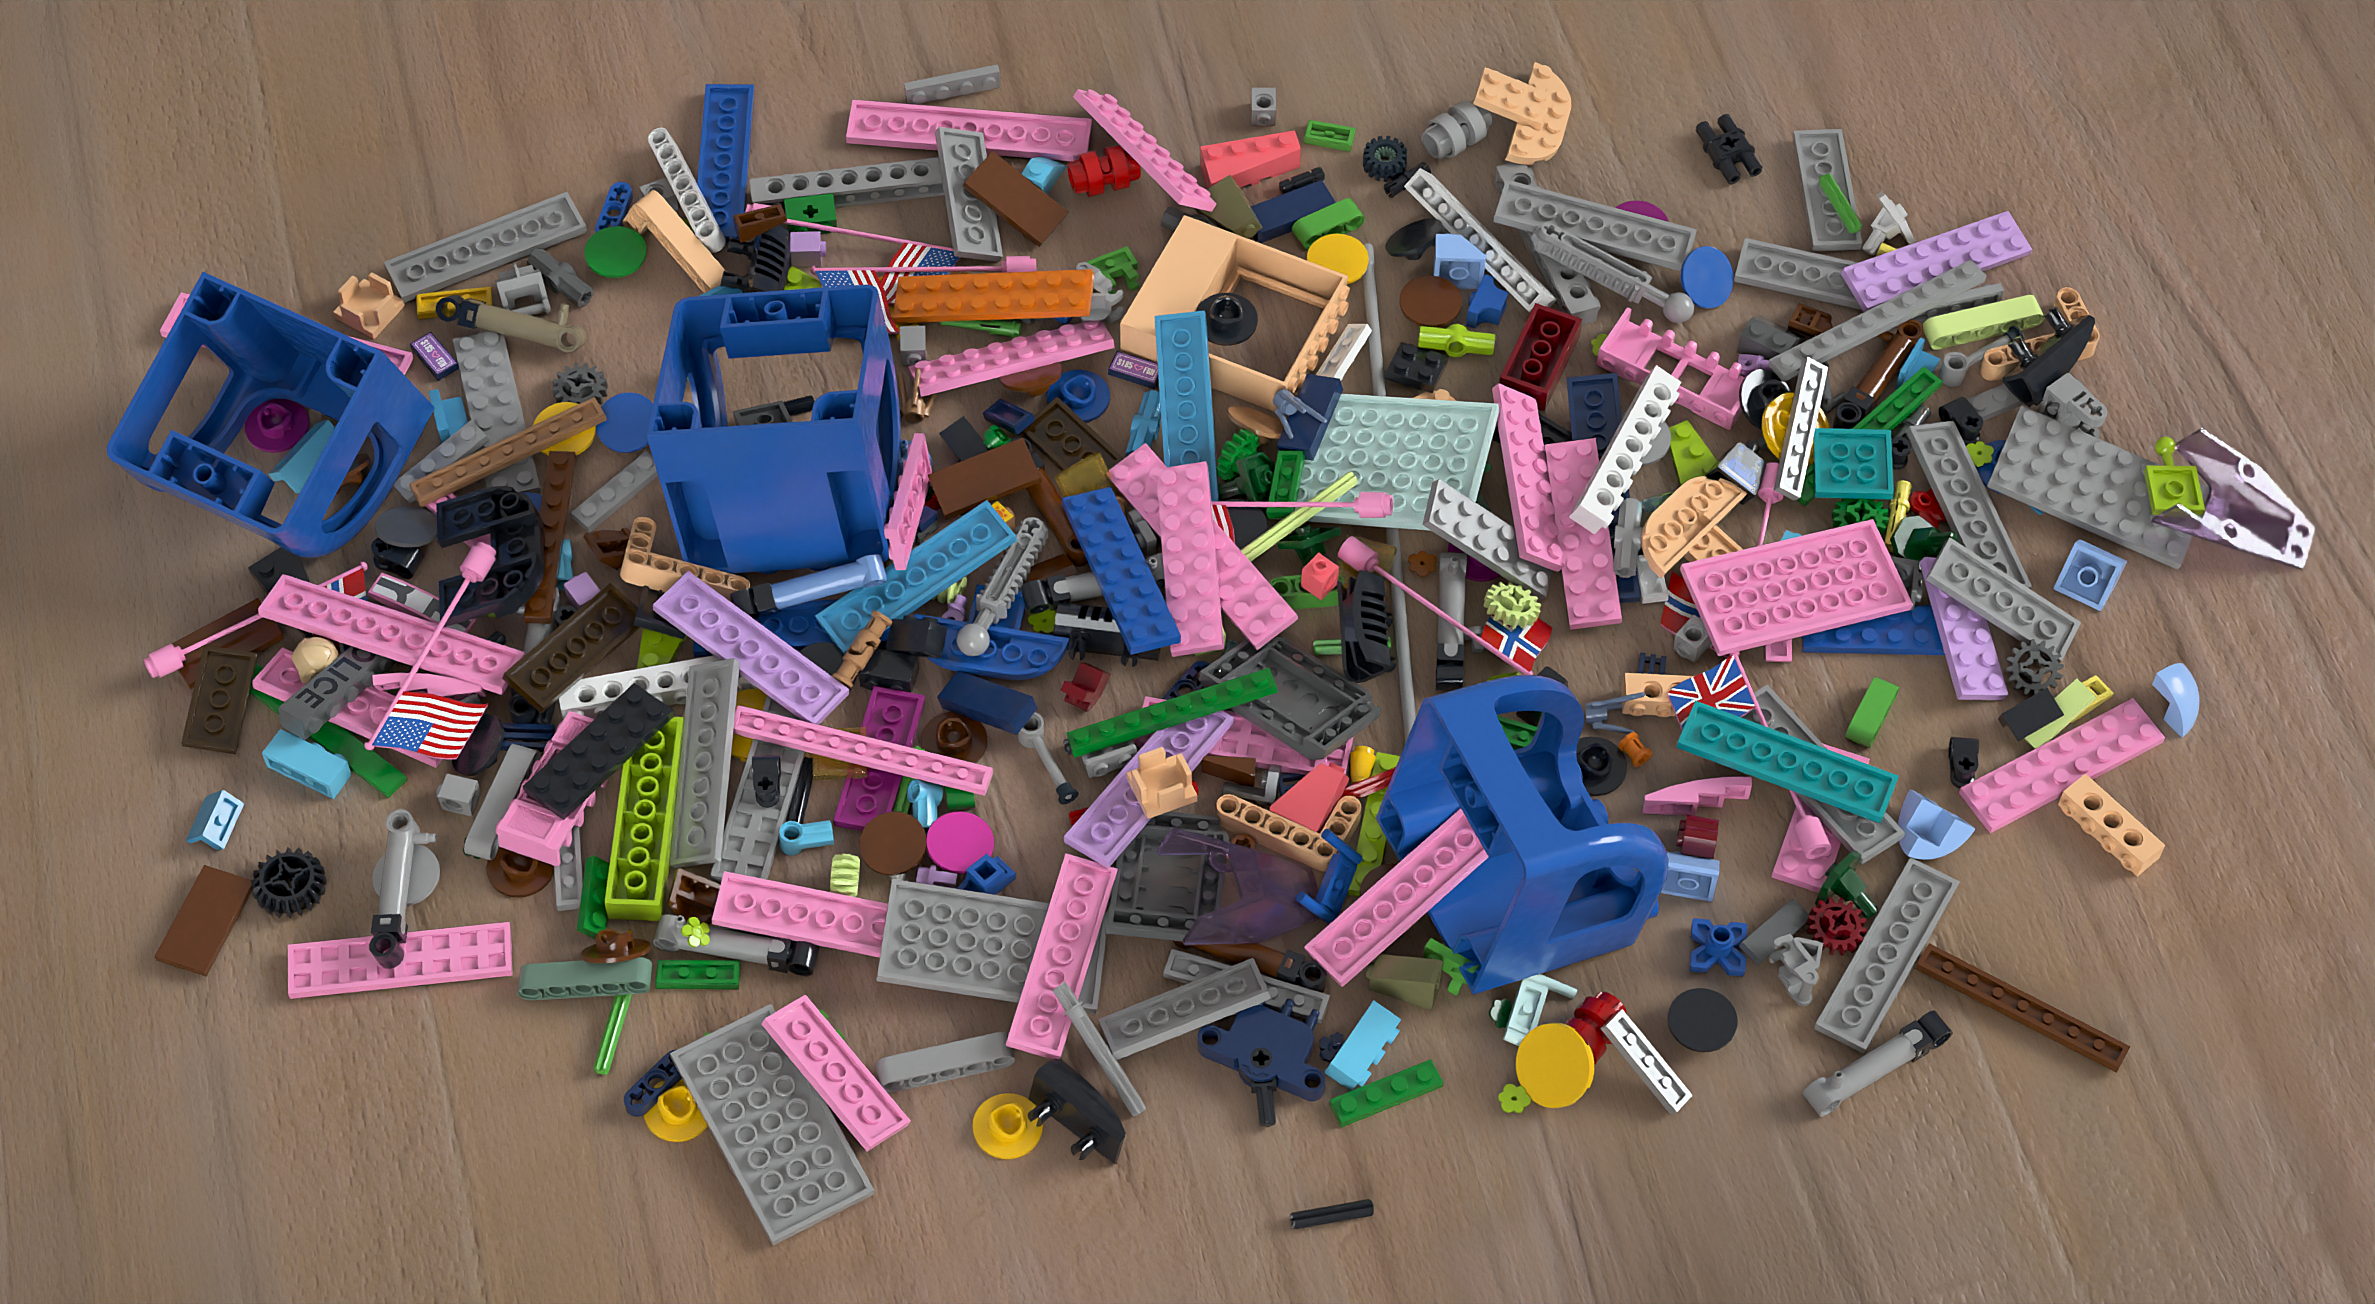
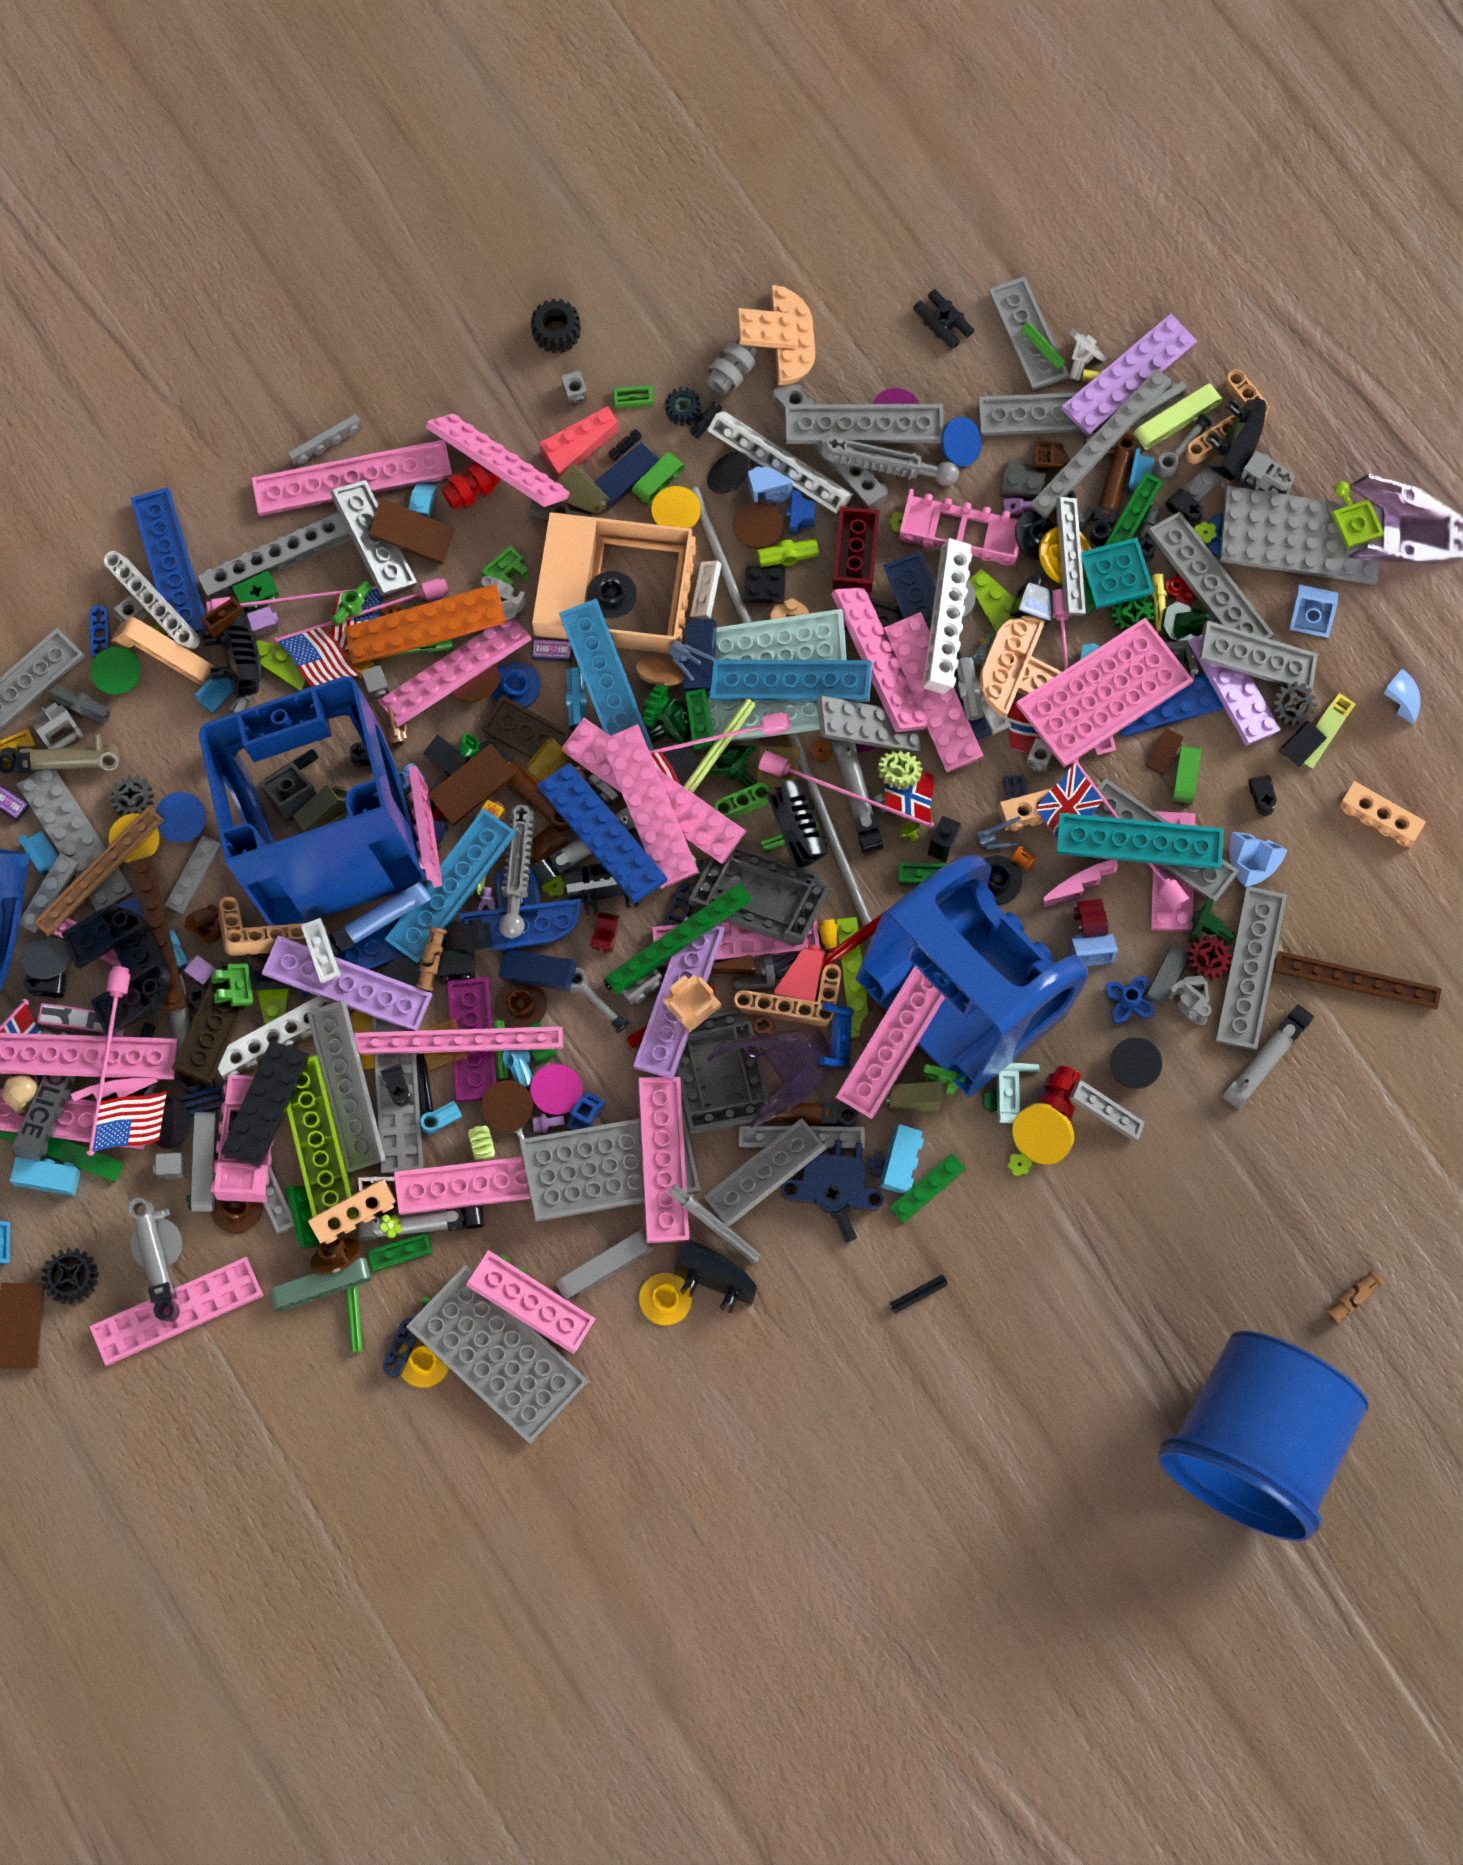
camera: 15 degrees left, 15 degrees up
(611, 899) = (378, 1190): none -> light nougat brick
(621, 611) = (238, 982): none -> bright green plate
(732, 599) = (321, 950): none -> white plate
(916, 253) = (351, 603): none -> bright green axle
(1008, 416) = (470, 722): dark blue tile -> none
(1264, 24) = (552, 312): none -> black tyre
(1319, 576) = (752, 792): coral brick -> none
(1409, 463) = (791, 680): none -> dark azure plate
(1853, 679) = (1165, 751): none -> reddish brown slope
(2053, 767) = (1334, 775): bright pink plate -> none

